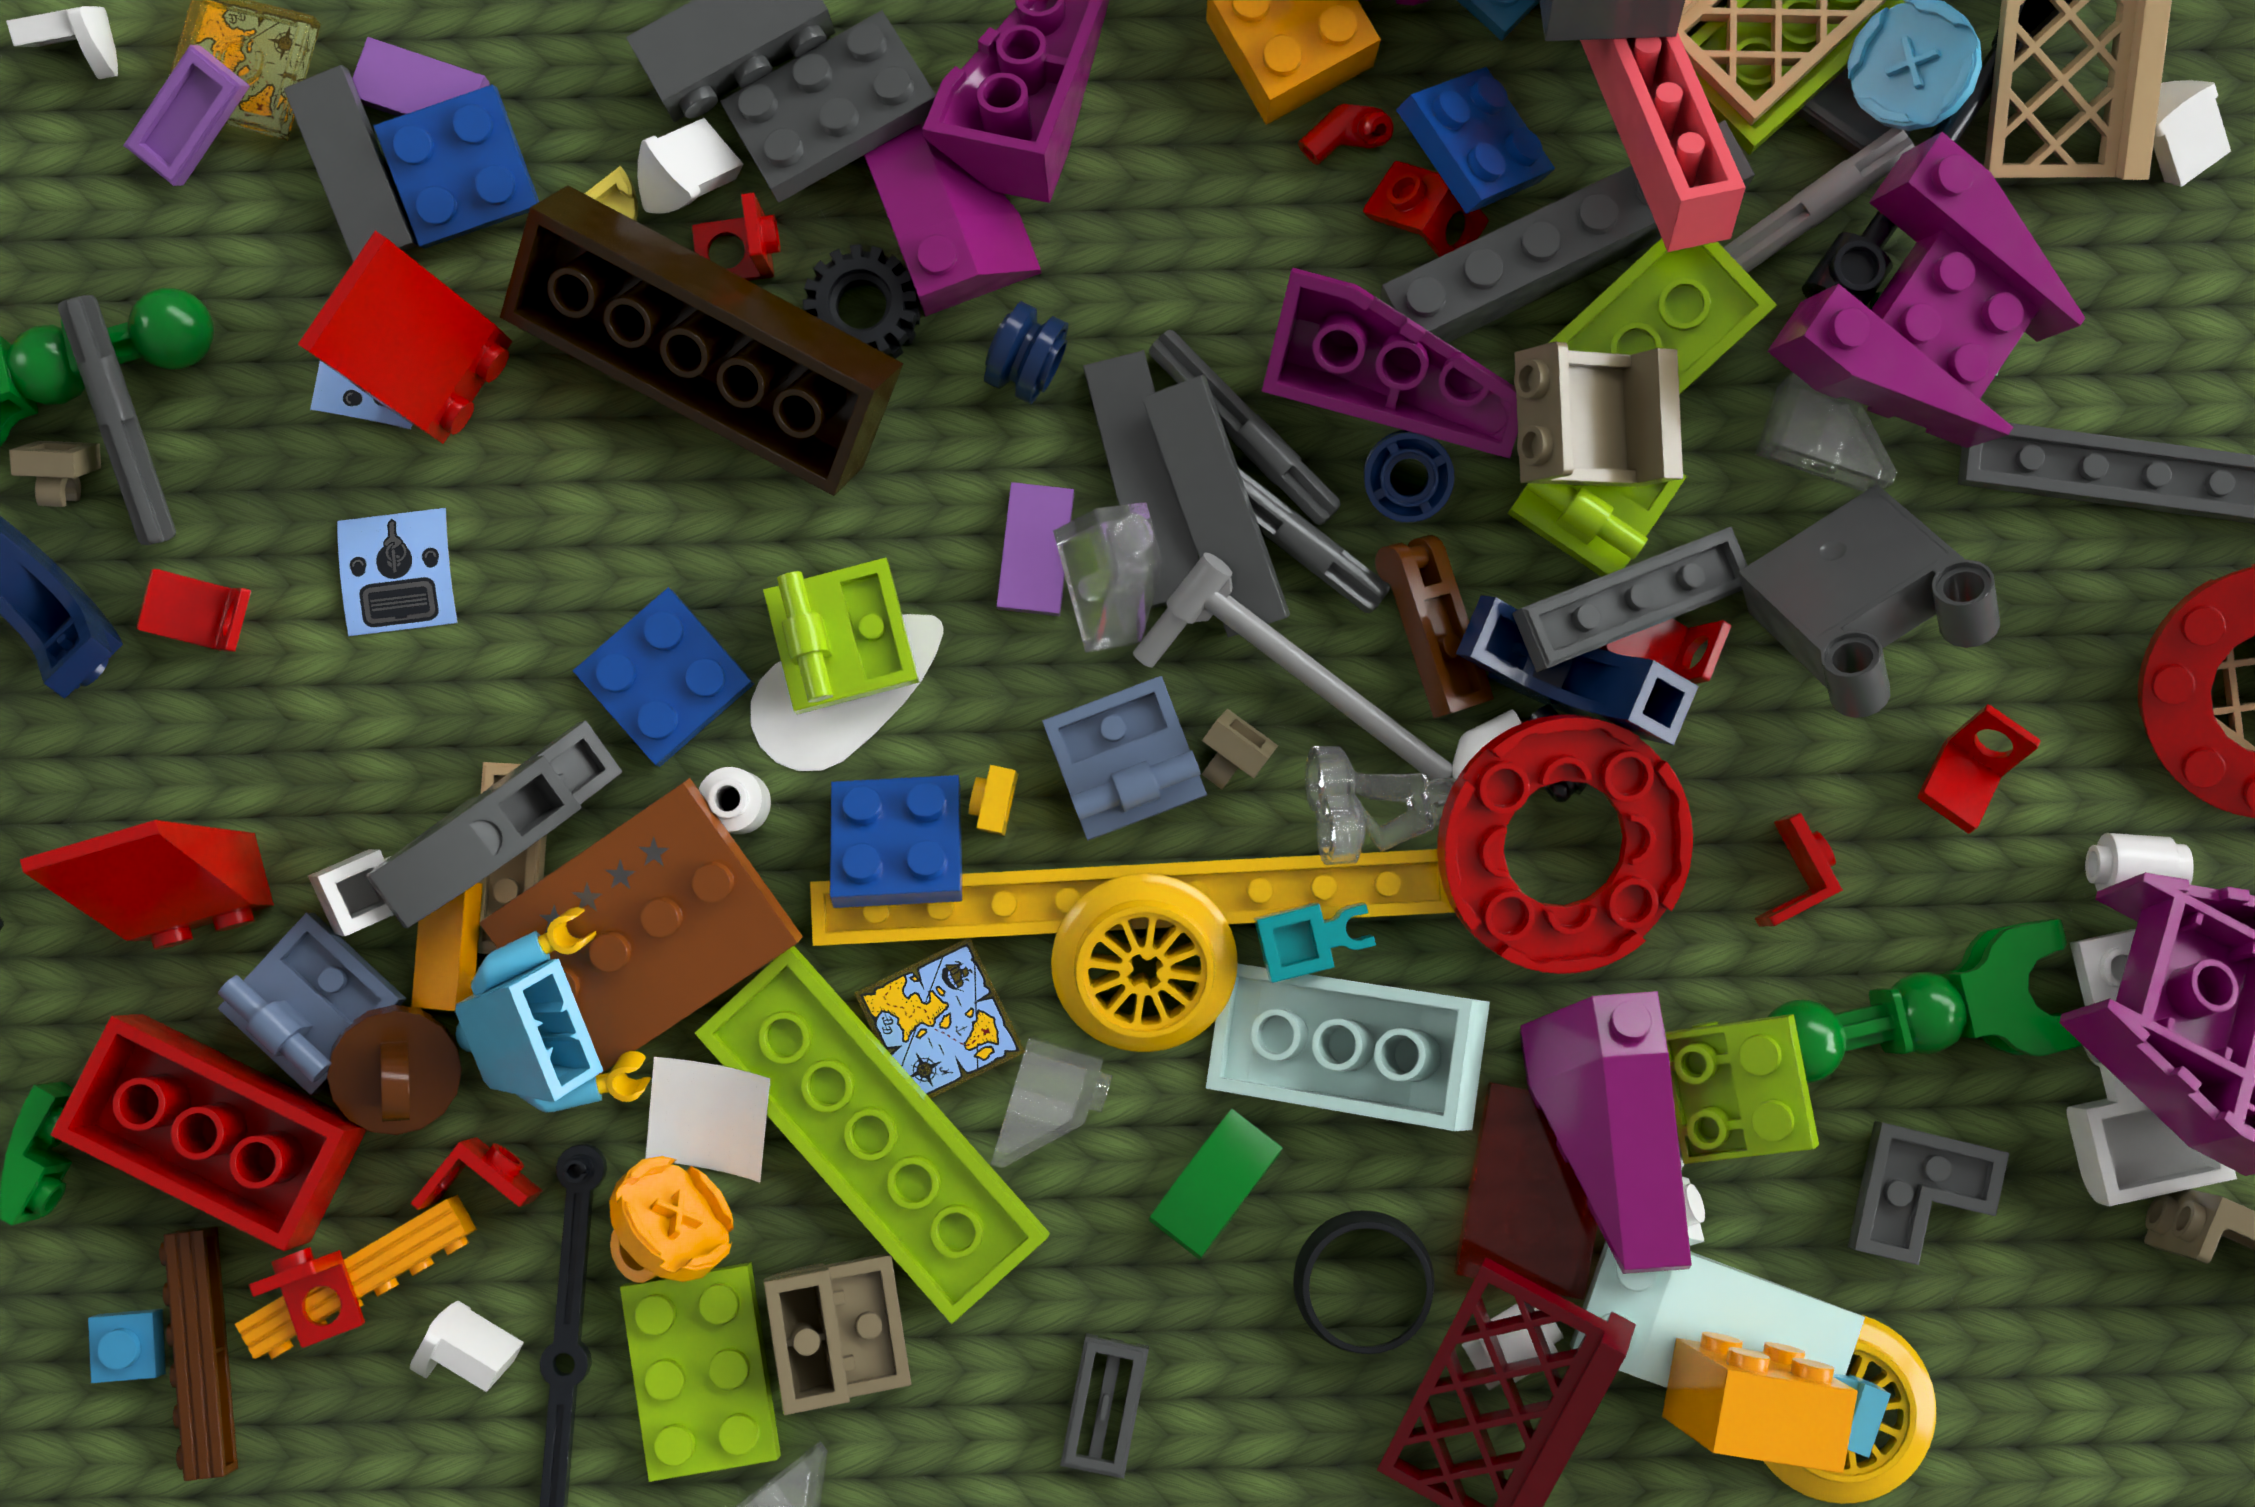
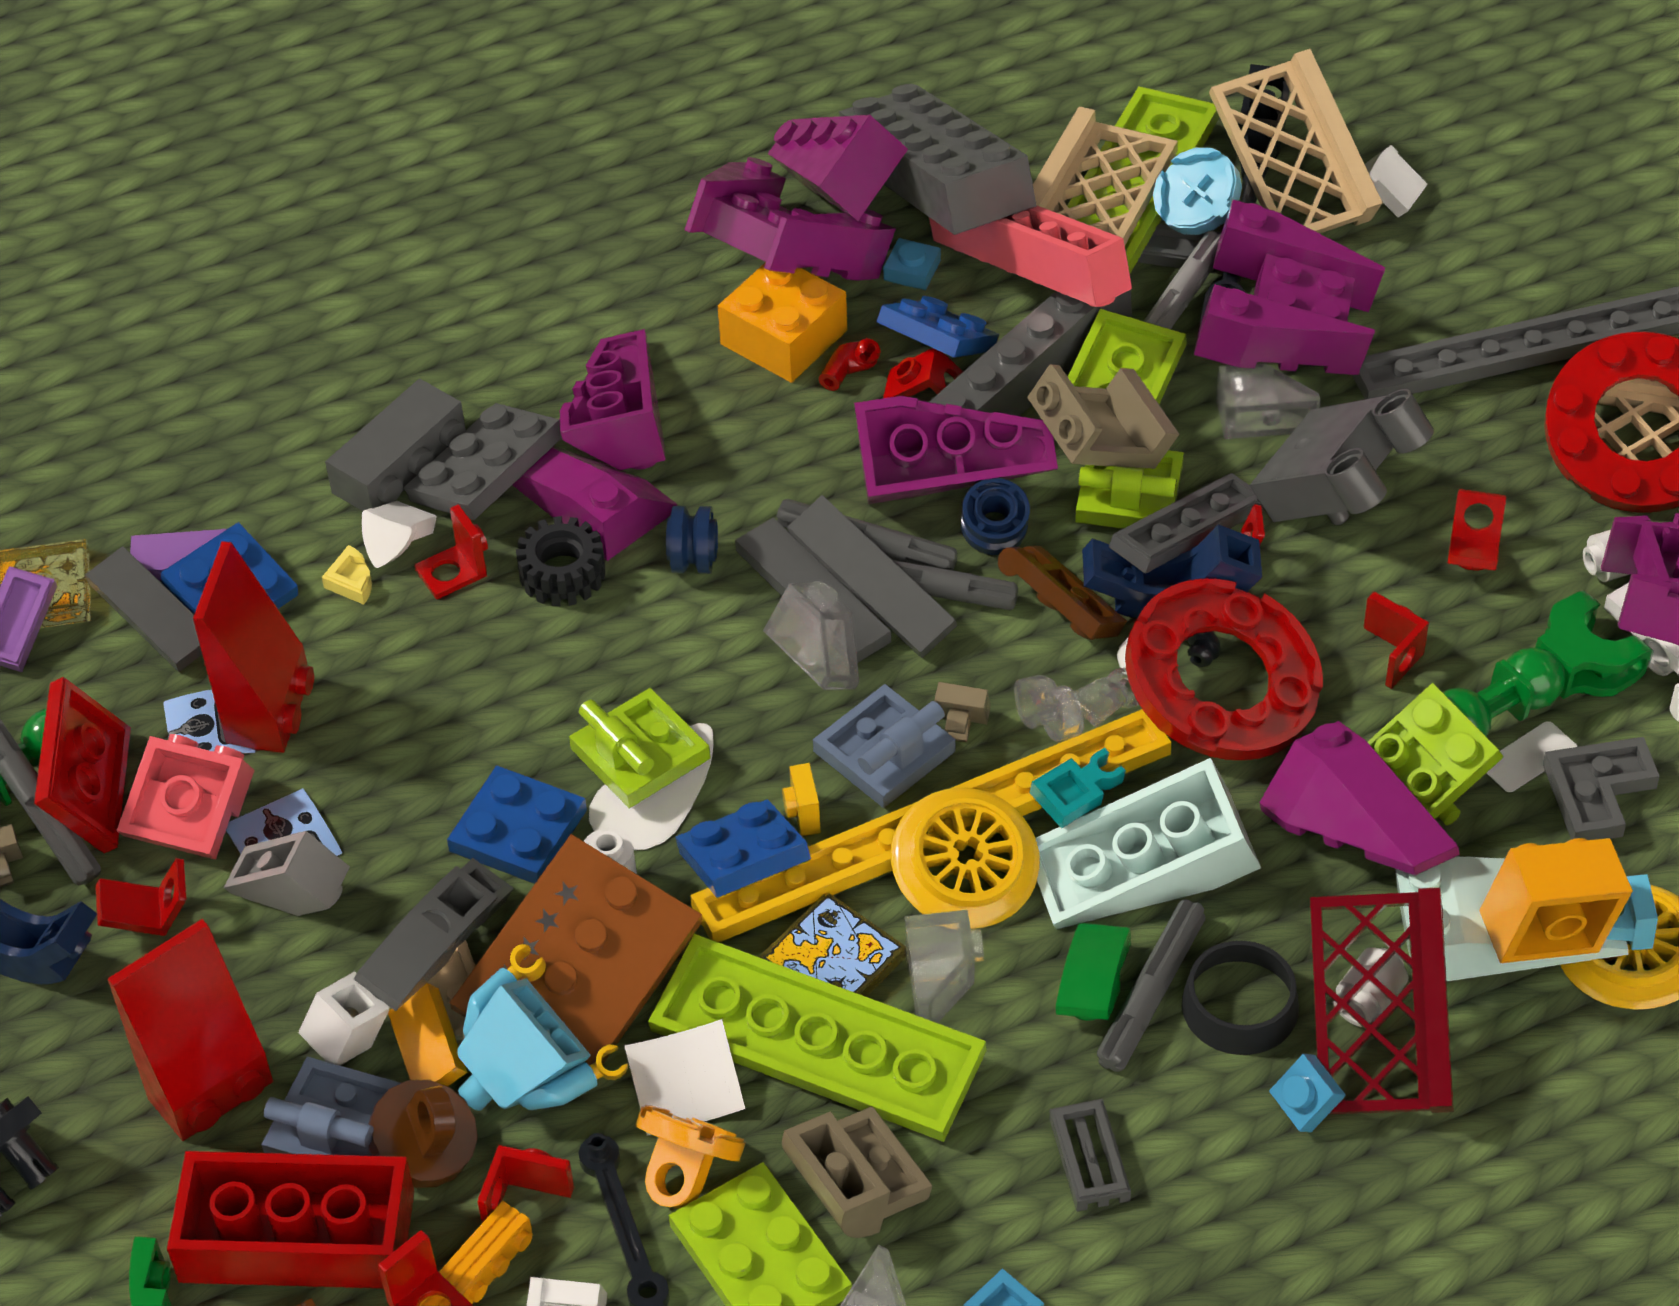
camera: 25 degrees left, 35 degrees down
(183, 394) = (82, 765): none -> red tile
(296, 478) = (185, 795): none -> coral plate
(371, 650) = (289, 874): none -> light grey slope
(699, 339) = (457, 599): dark brown brick -> none
(1030, 559) = (754, 656): medium lavender tile -> none
(1207, 593) = (892, 621): light grey bar -> none
(1274, 1223) = (1151, 986): none -> dark grey axle
(1371, 1450) = (1307, 1093): none -> dark azure plate
(1525, 1200) = (1308, 868): clear red tile -> none
(1869, 1095) = (1525, 756): none -> white sticker

